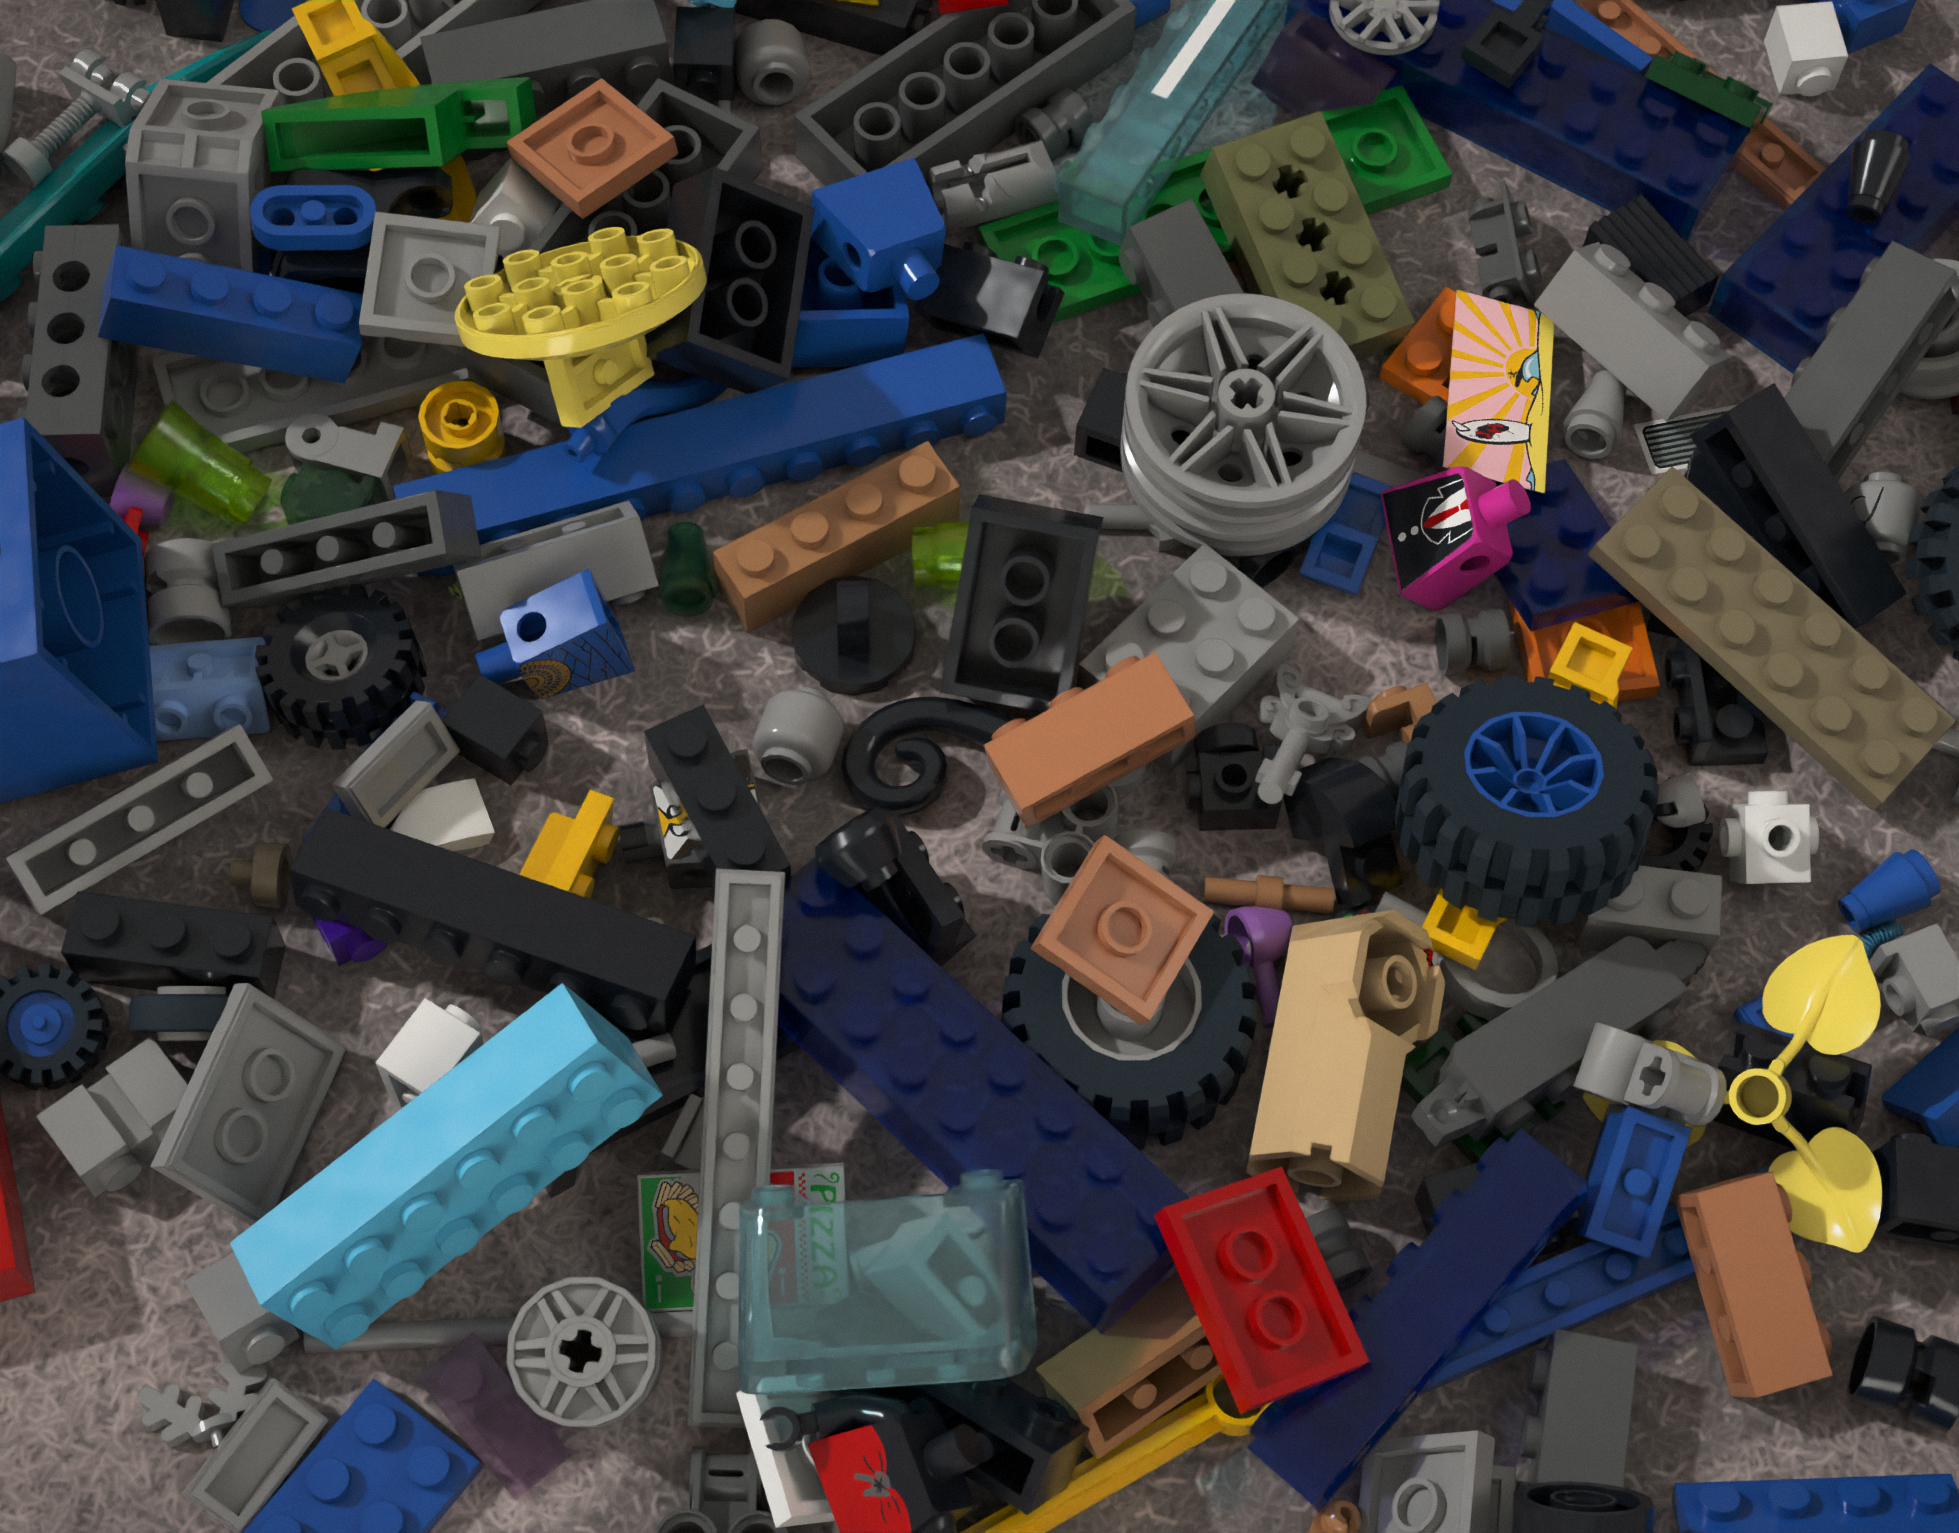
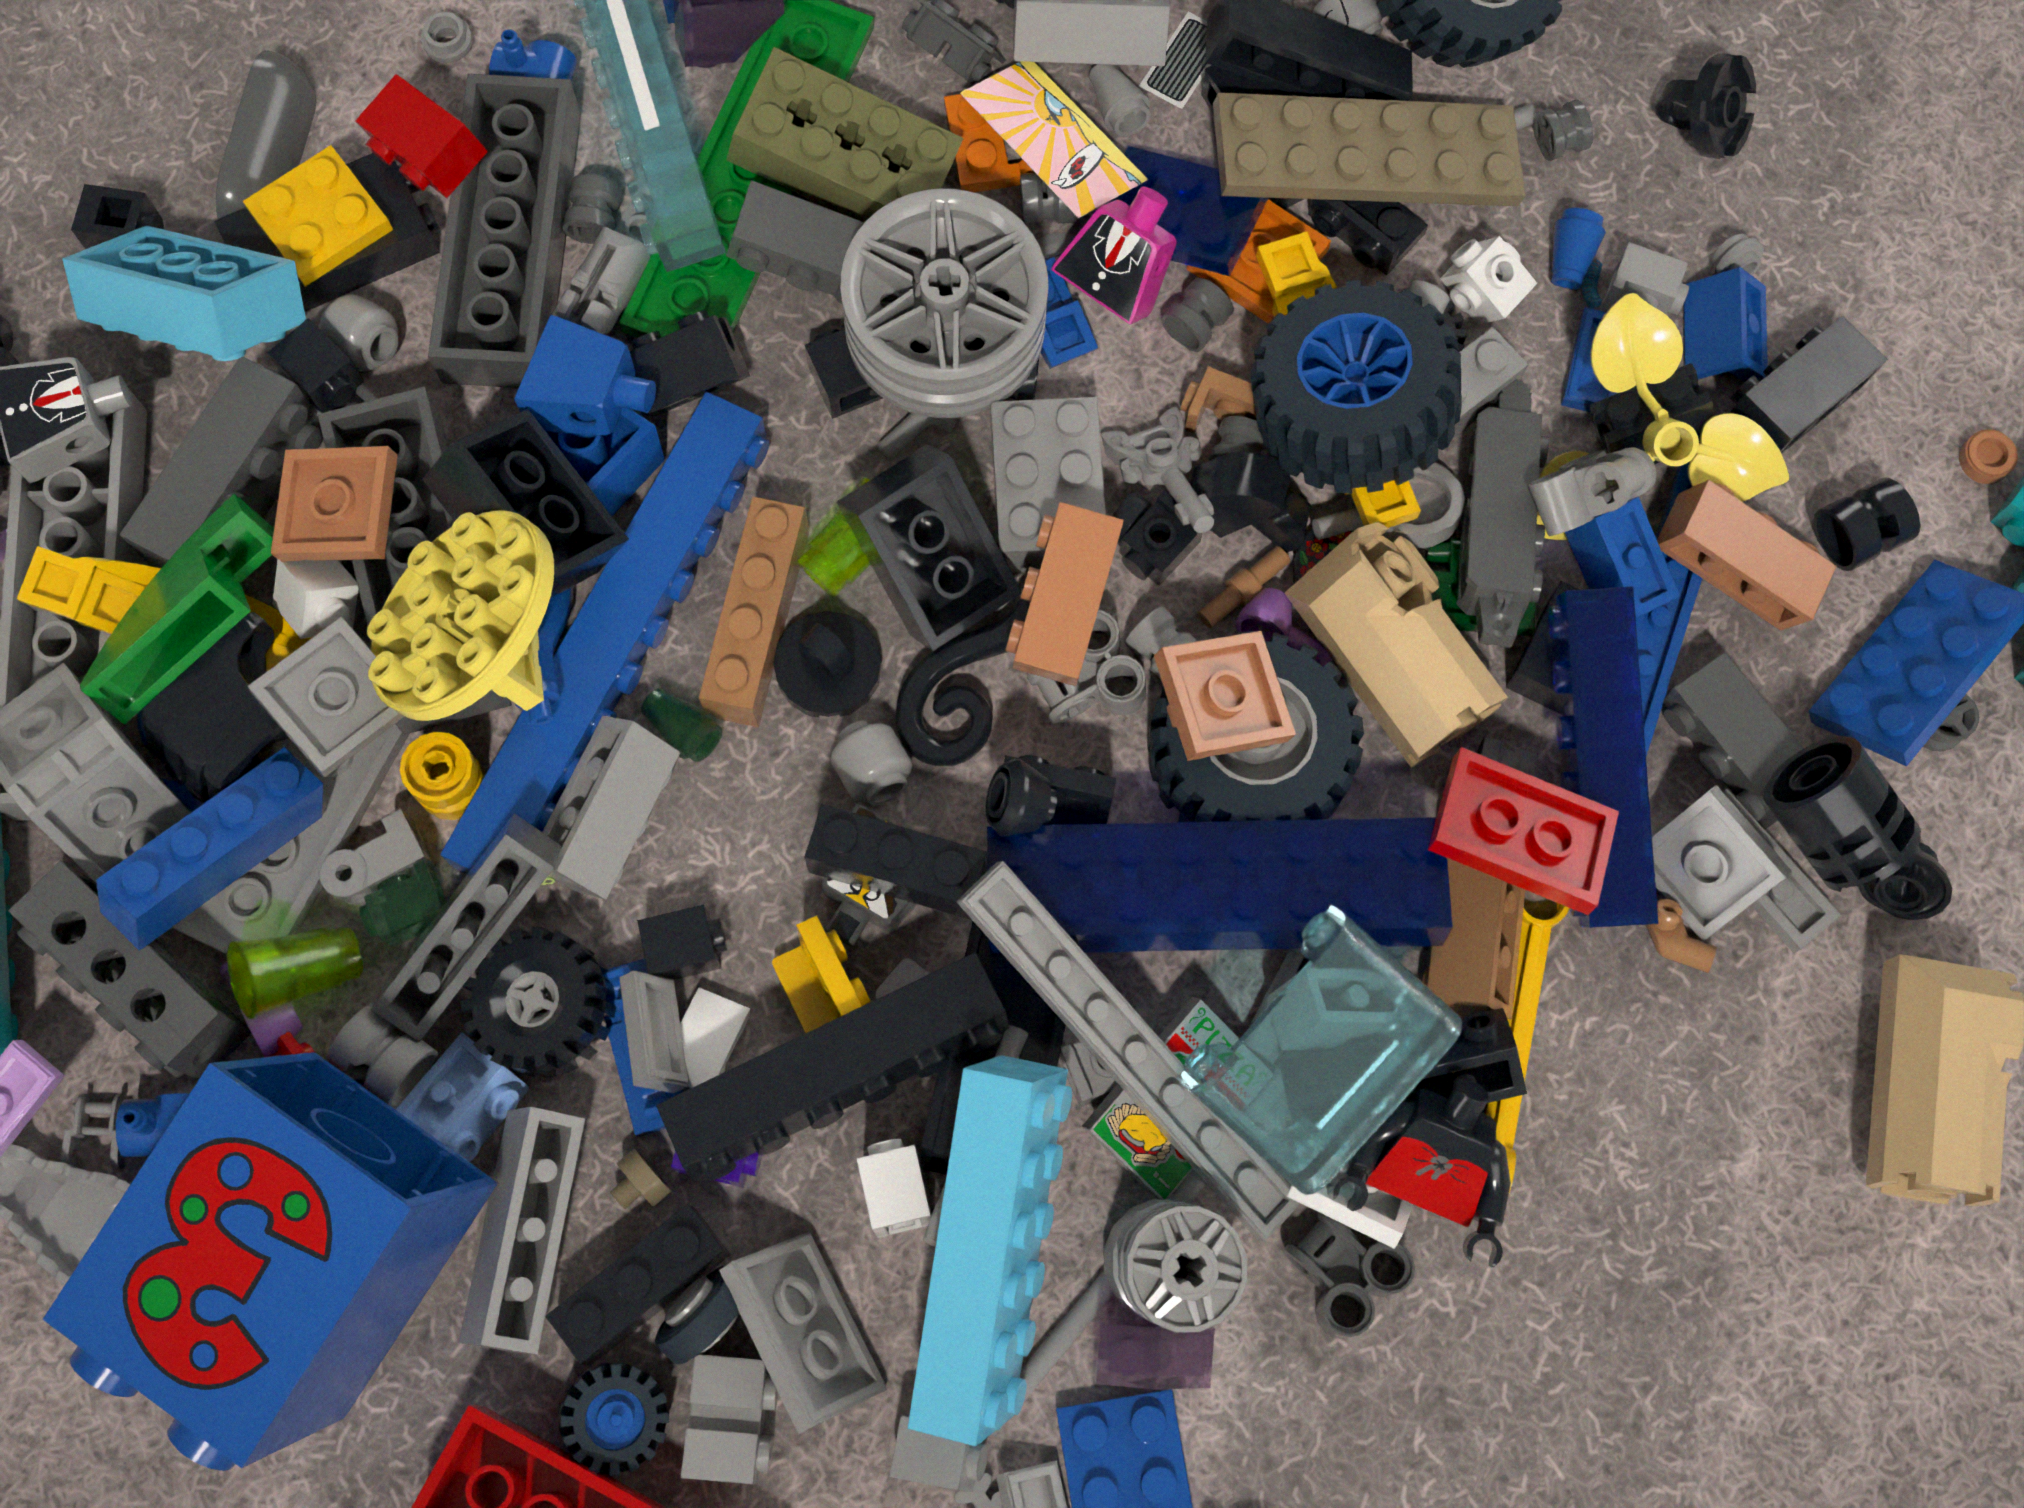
camera: 45 degrees left, 10 degrees up
(313, 217) = (199, 727): blue plate -> none
(559, 640) = (661, 828): blue torso -> none

